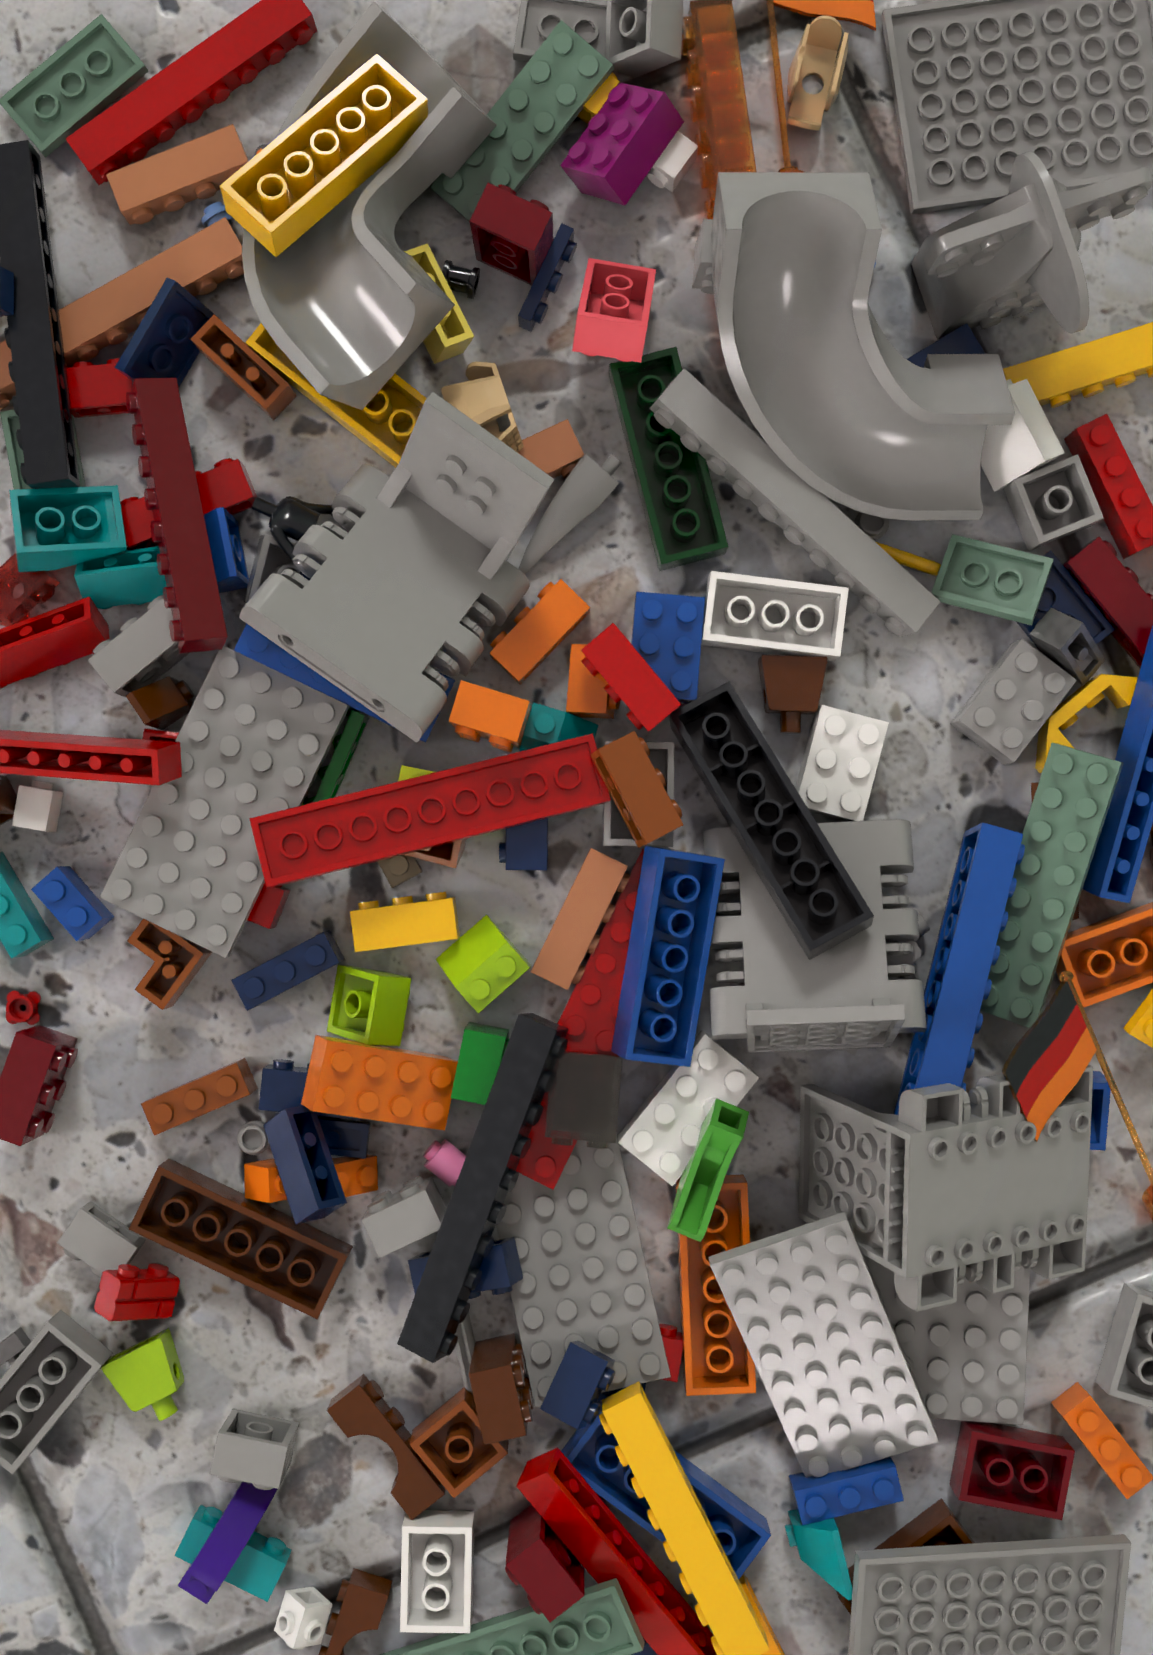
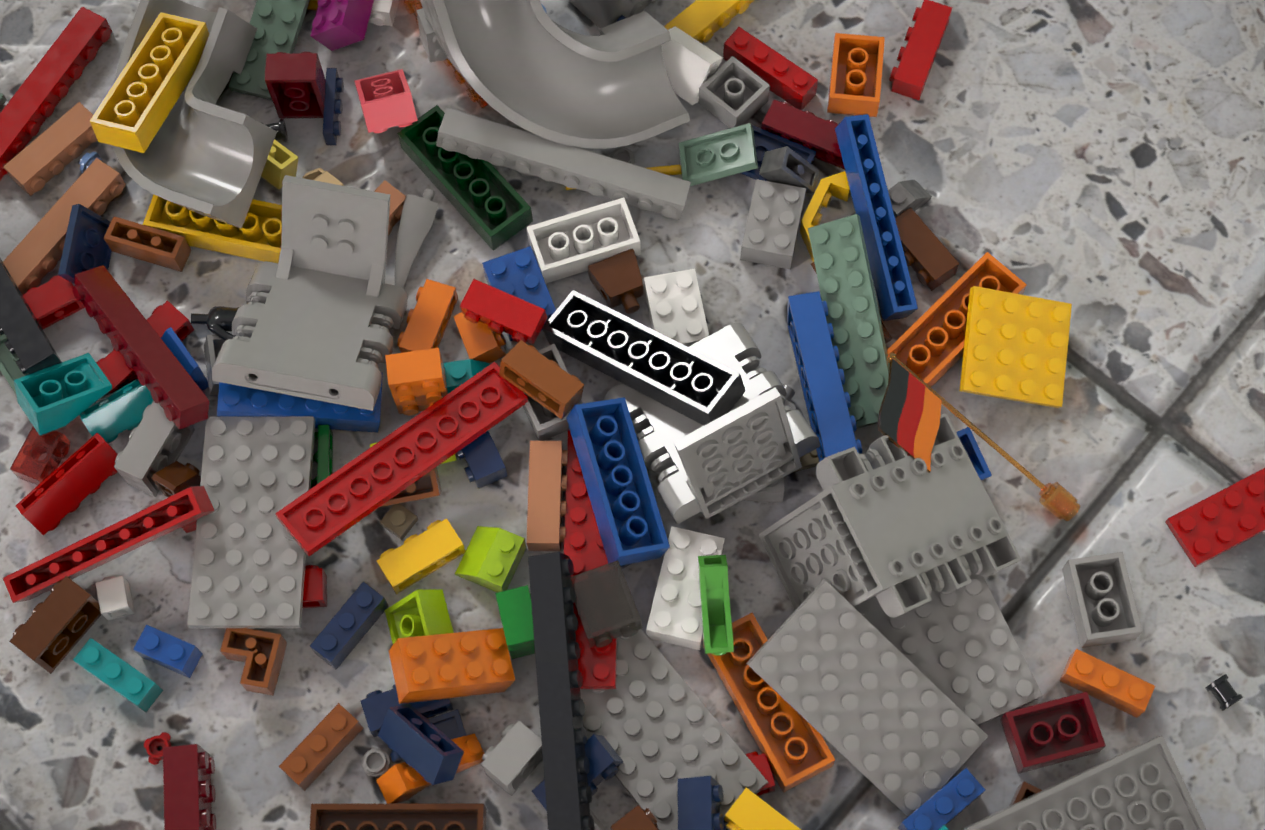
camera: 25 degrees left, 20 degrees down
(444, 1161) = (526, 710): bright pink brick -> none

